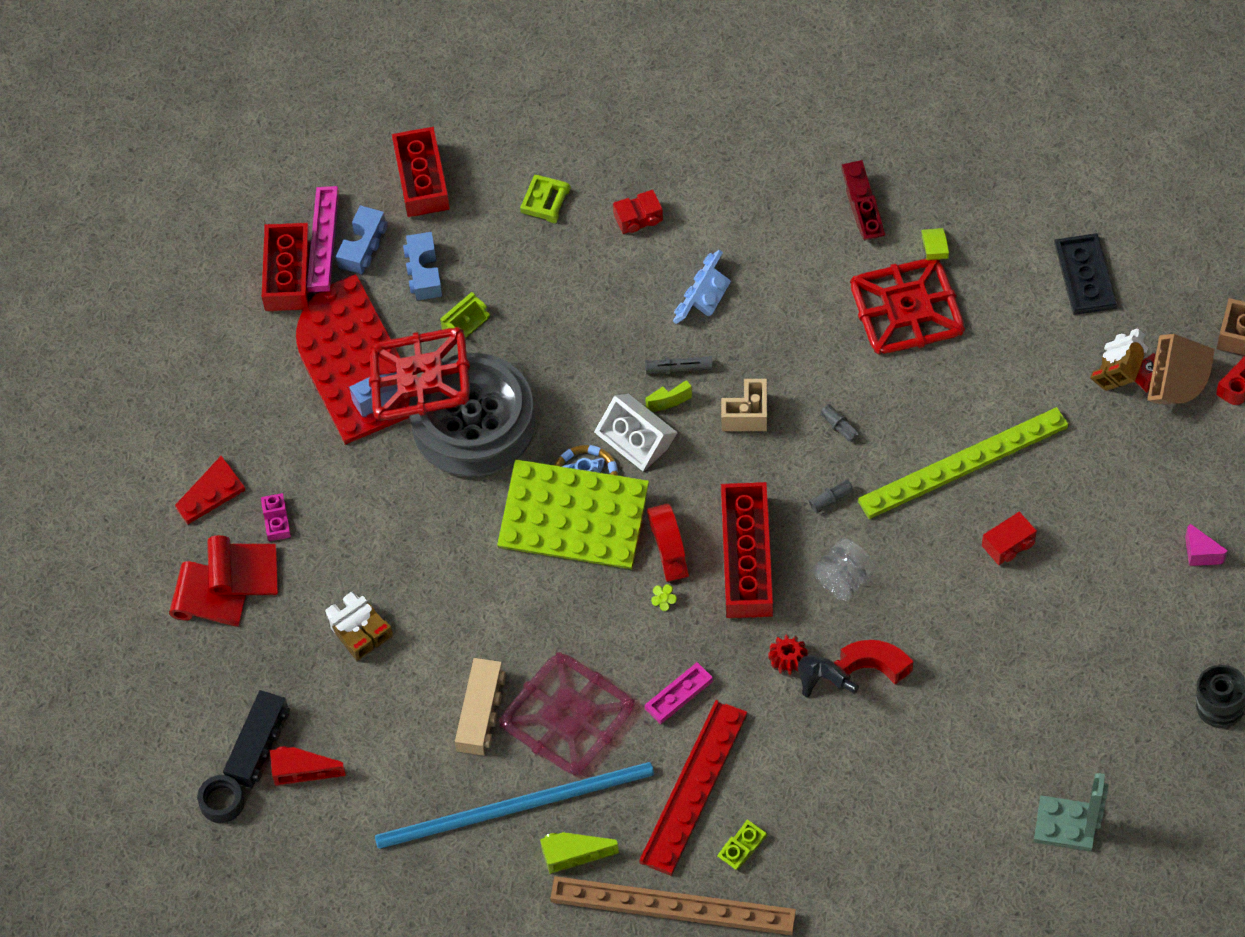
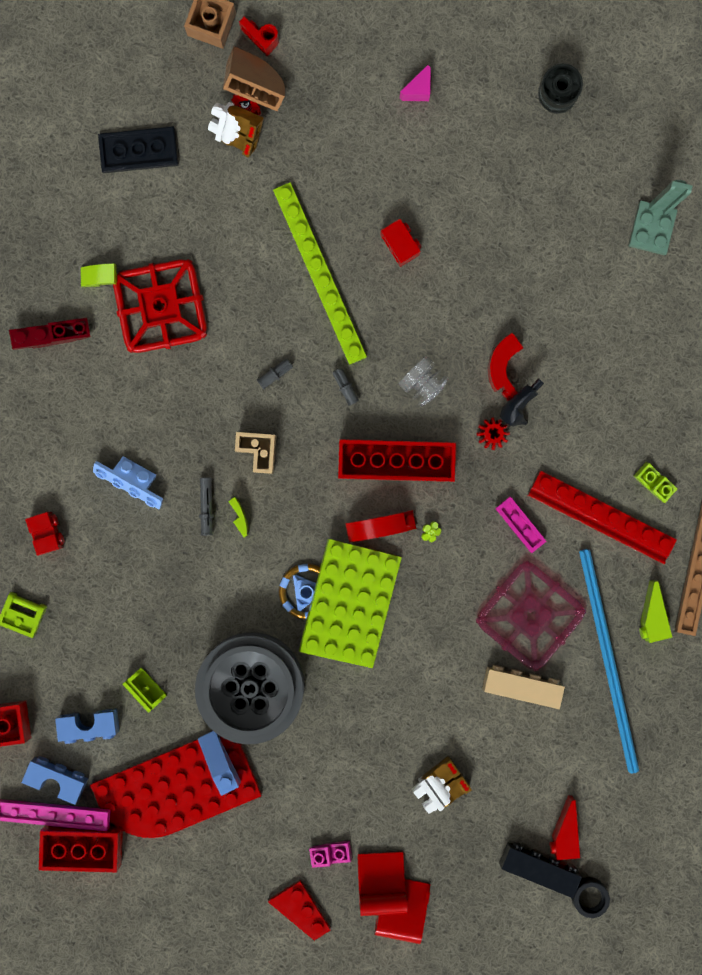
camera: 90 degrees left, 30 degrees up
(408, 368) = (212, 746): red plate -> none
(635, 431) = (271, 547): white slope -> none

